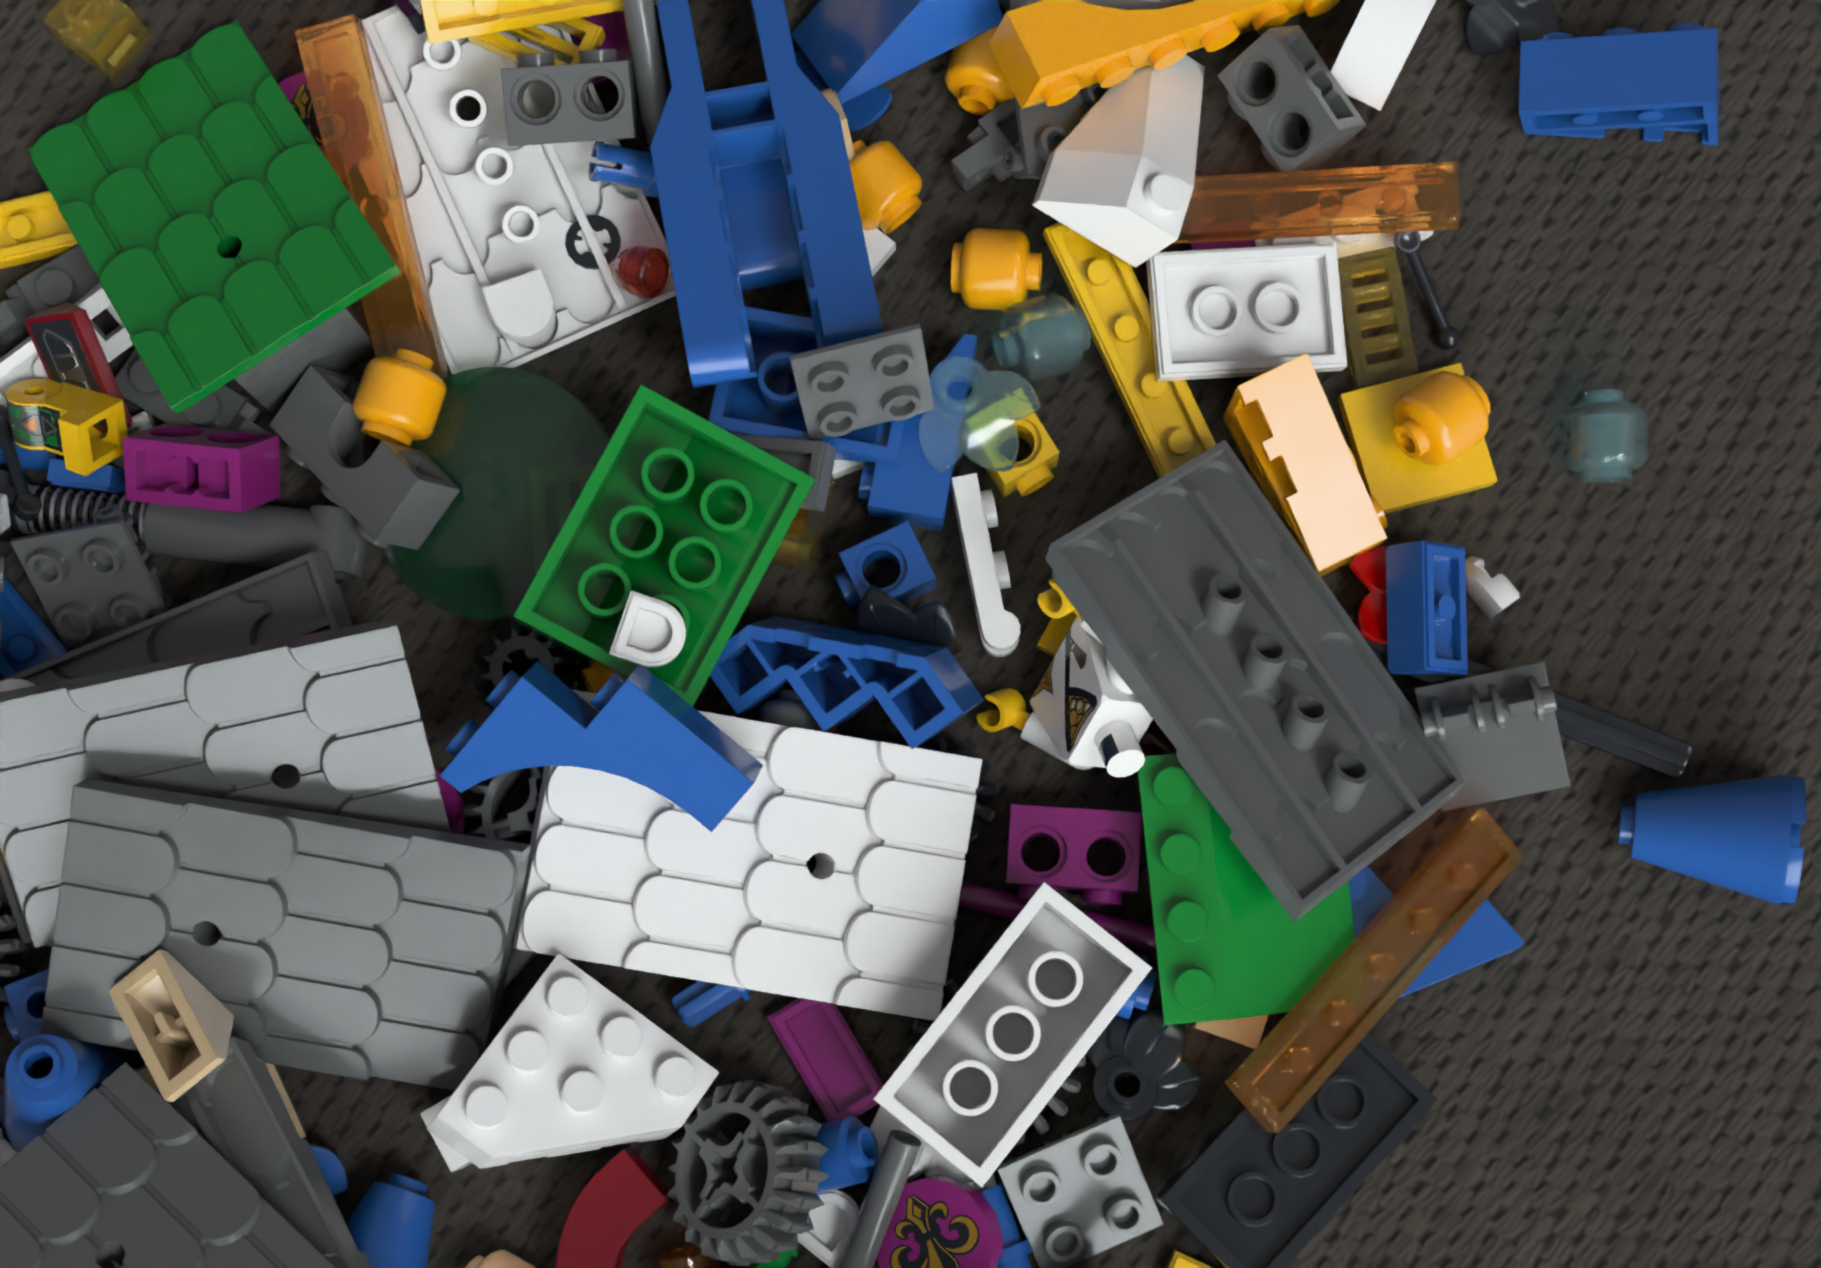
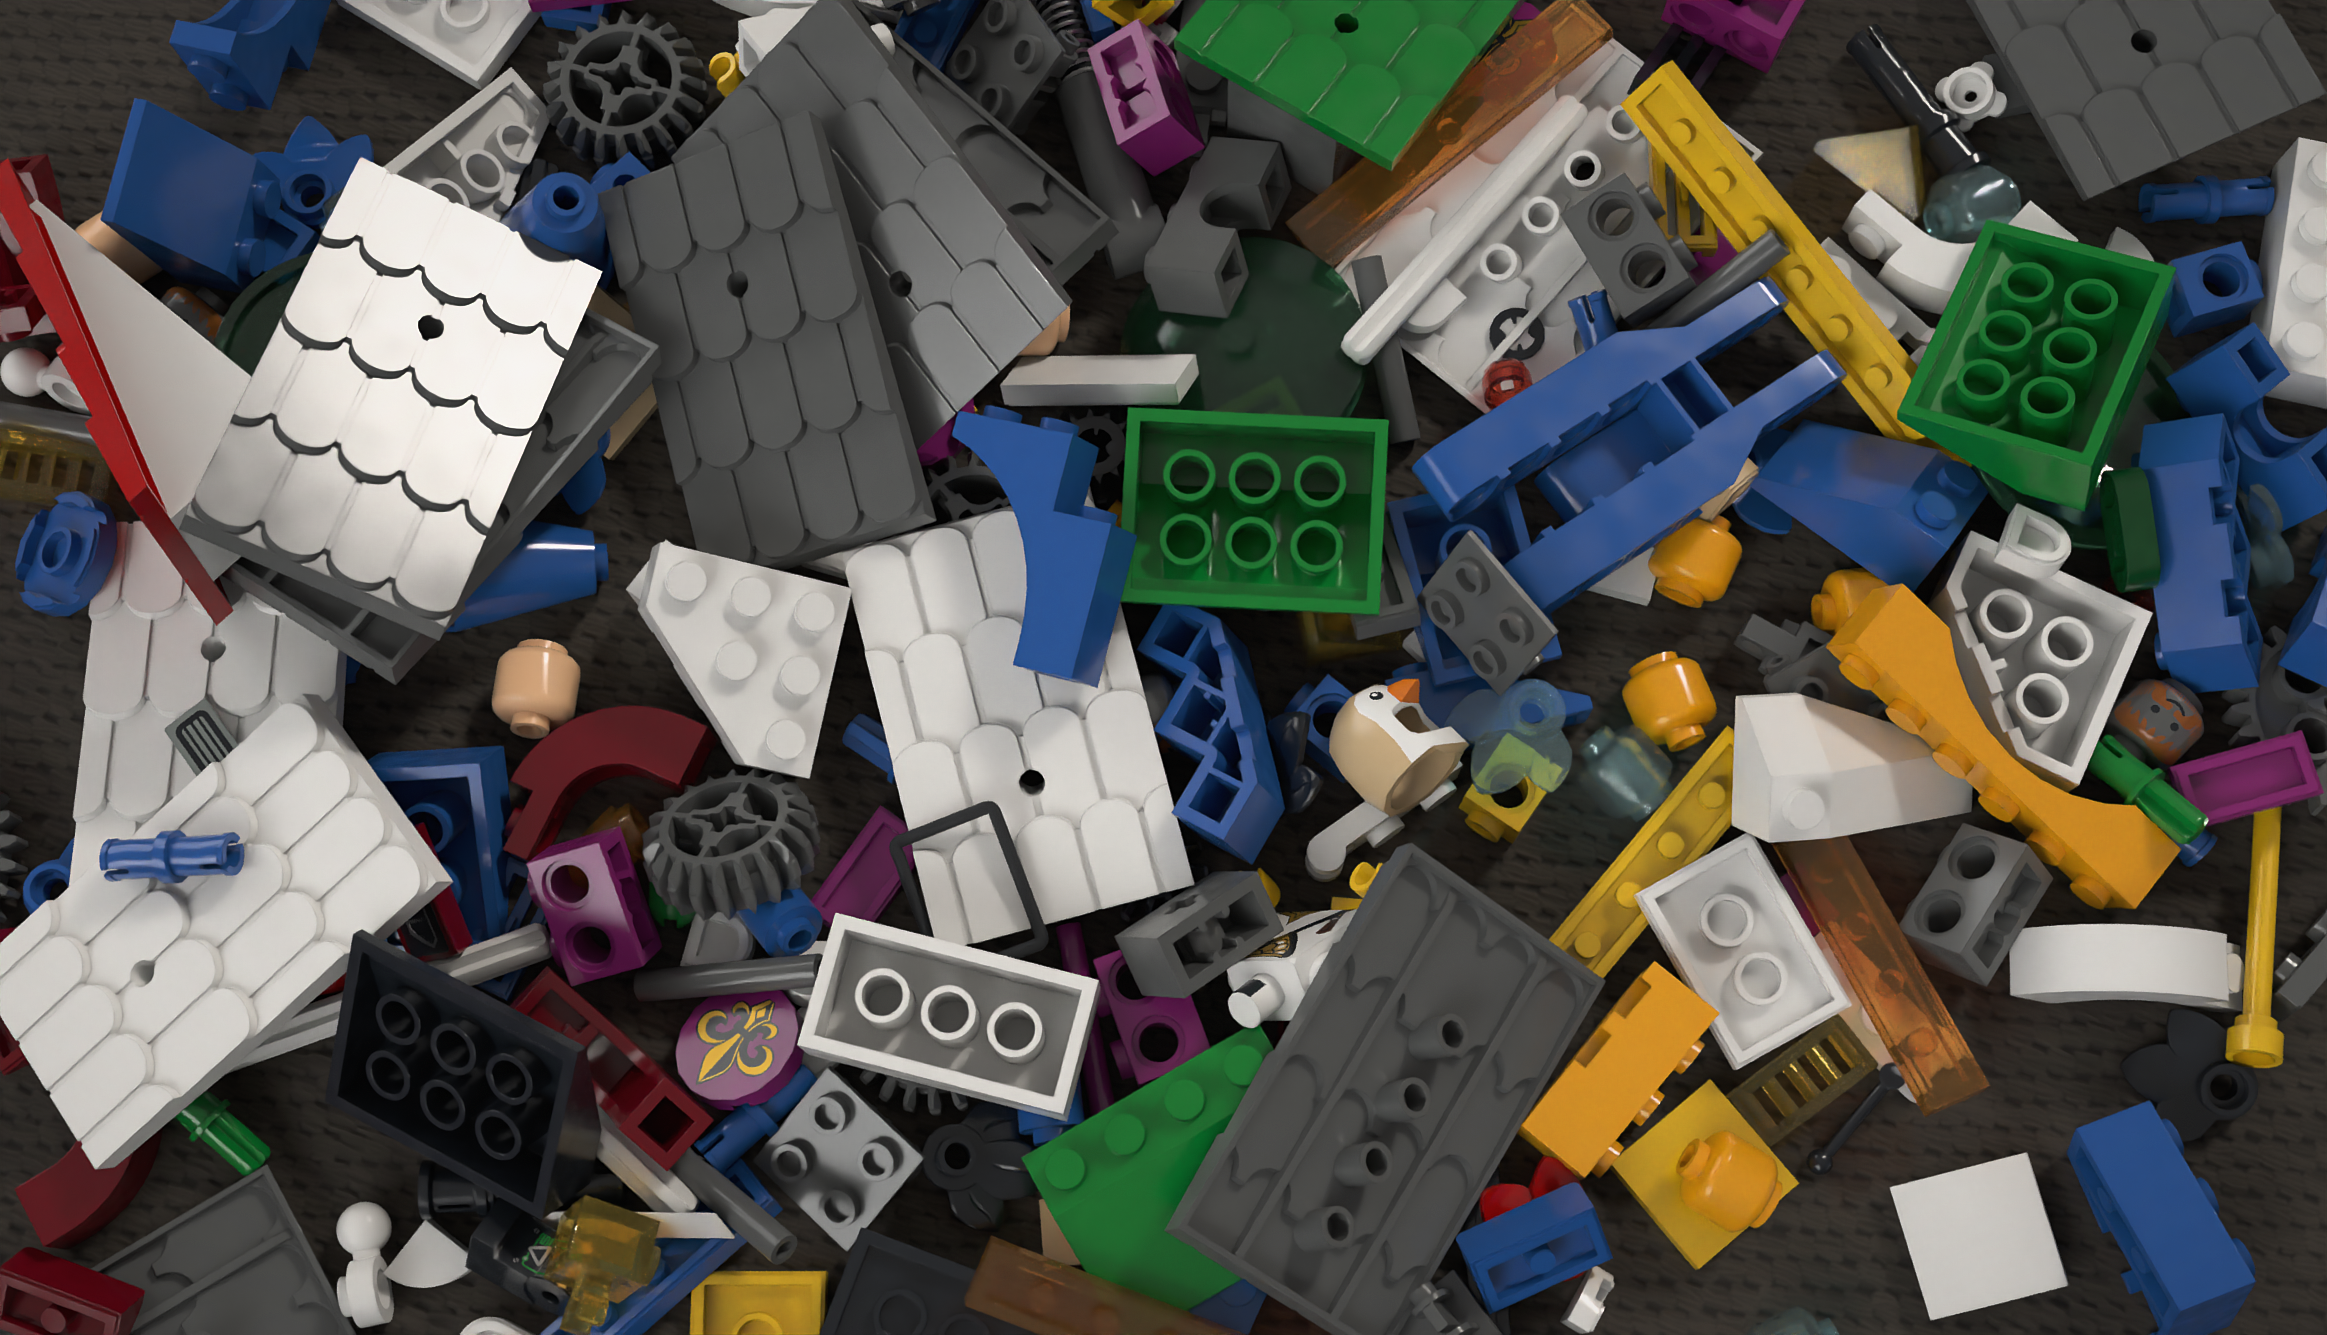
camera: 65 degrees right, 5 degrees down
(173, 1023) = (650, 292): tan slope -> none
(399, 398) = (1285, 230): light orange head -> none
(463, 630) = (1100, 380): none -> white tile
(477, 239) = (1463, 230): none -> white axle
(551, 362) = (1389, 361): none -> dark grey piece
(648, 632) = (1167, 529): white tile -> none
(884, 914) = (1010, 855): none -> black piece
(938, 525) = (1392, 747): none -> tan piece
(1033, 774) = (1199, 934): none -> dark grey brick
(1567, 237) = (1979, 1236): none -> white slope

